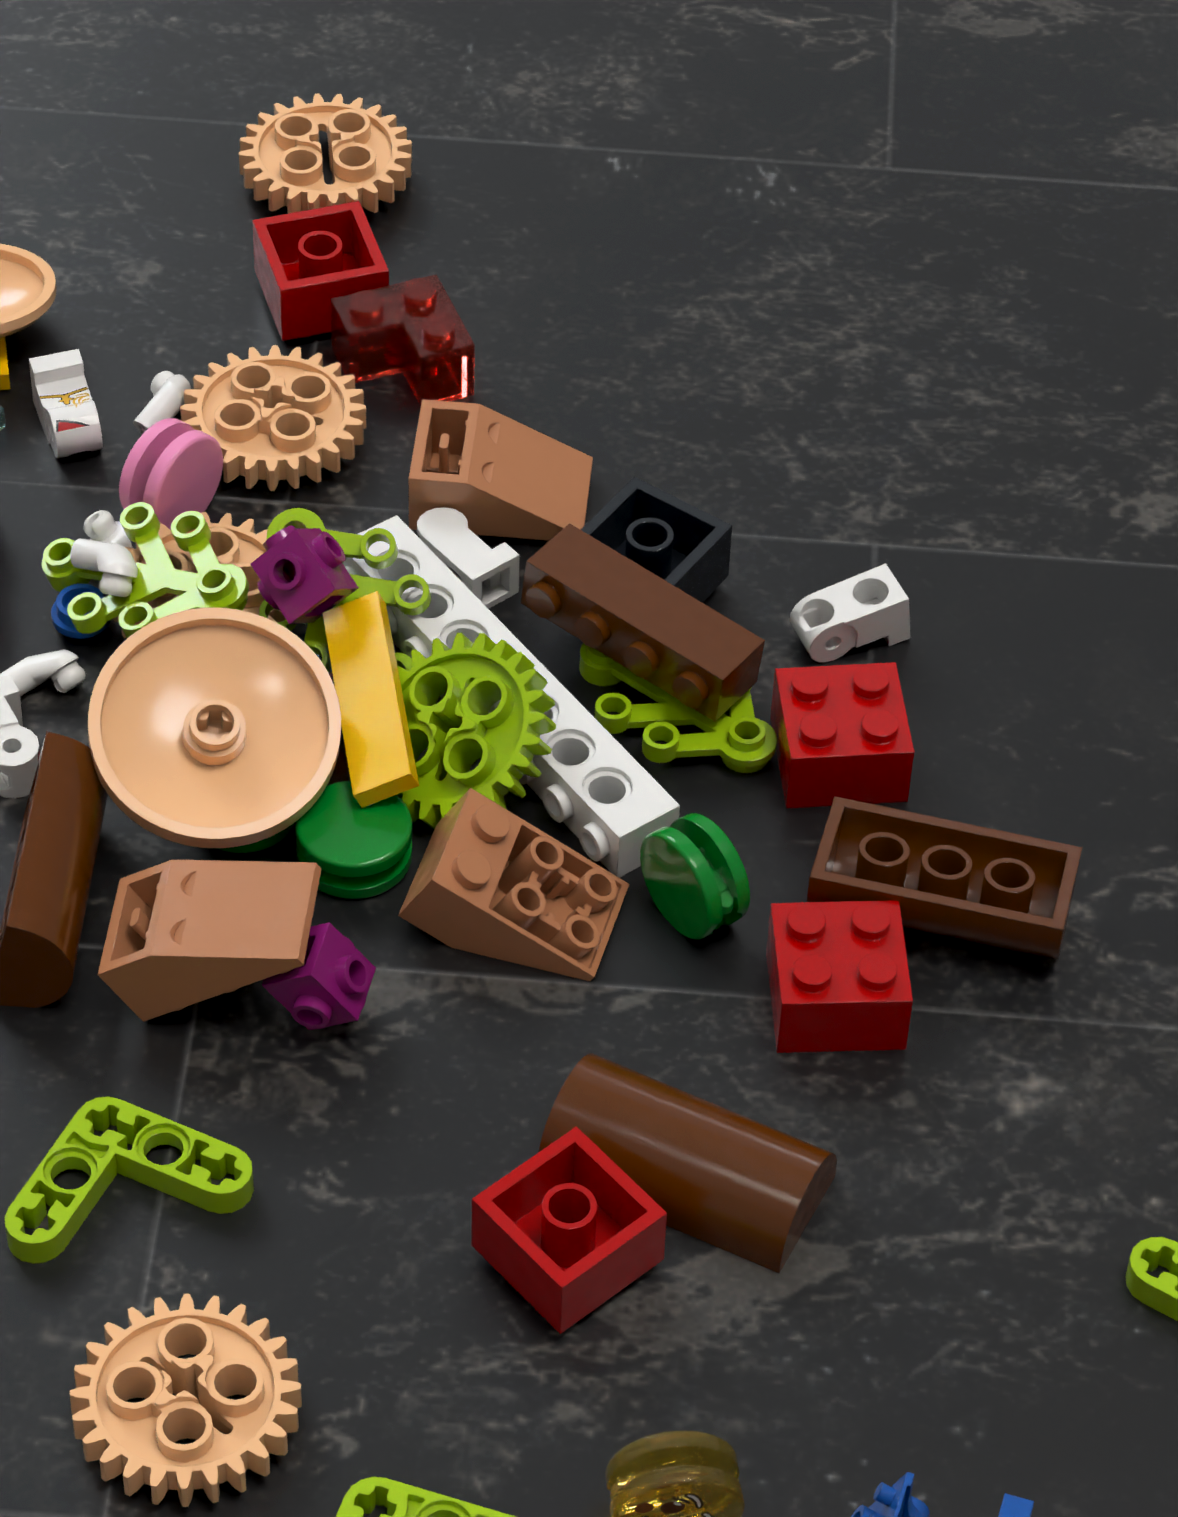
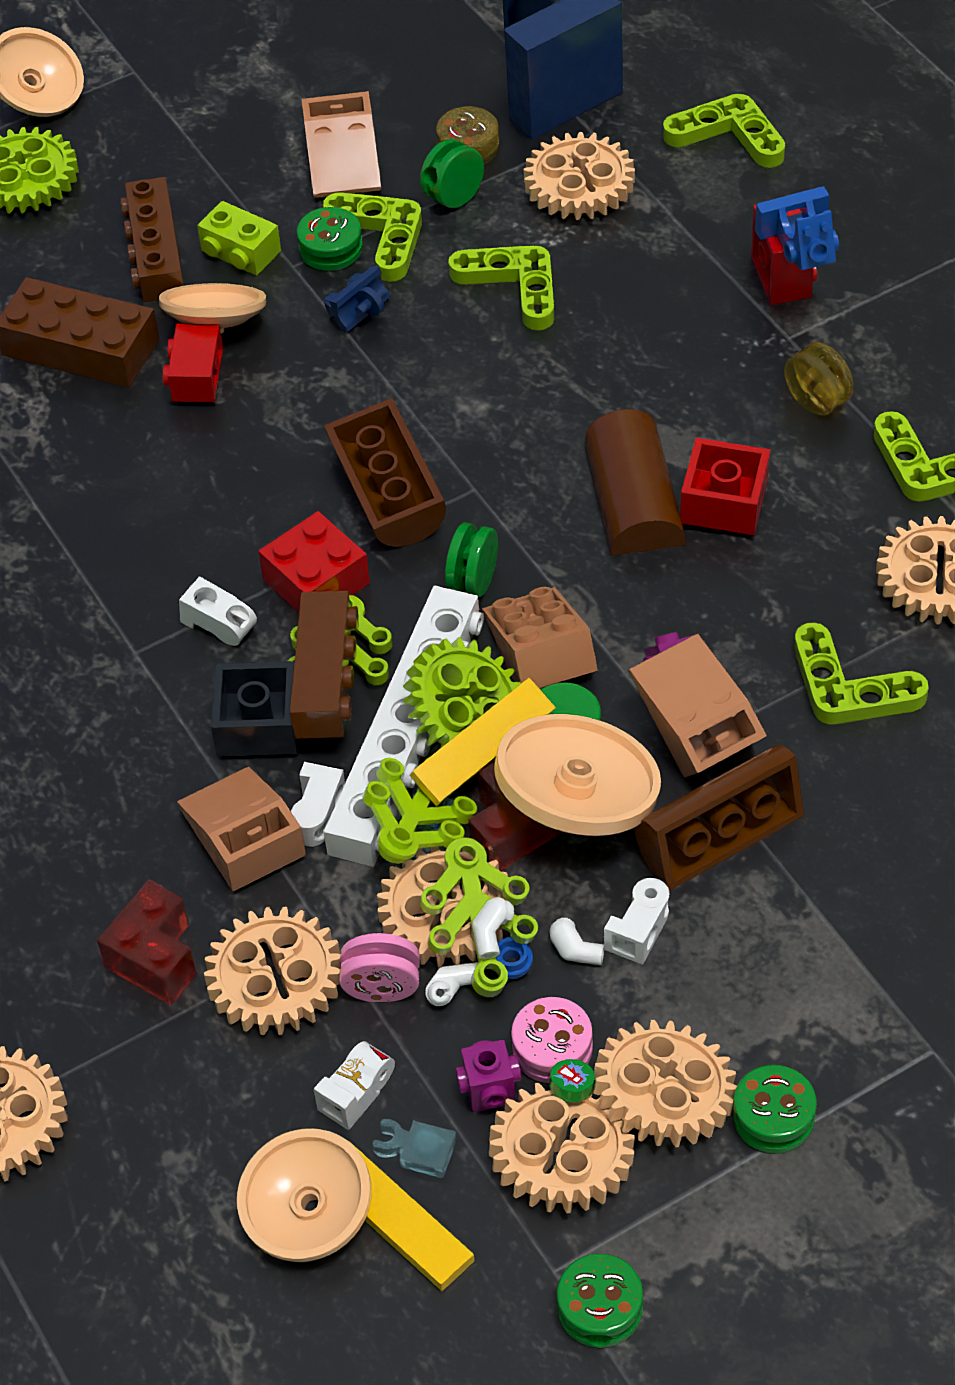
camera: 120 degrees left, 5 degrees up
(167, 399) = (298, 1038): white arm -> none
(303, 573) = (435, 803): magenta brick -> none
(313, 258) = (127, 1022): red brick -> none
(838, 976) = (482, 482): red brick -> none

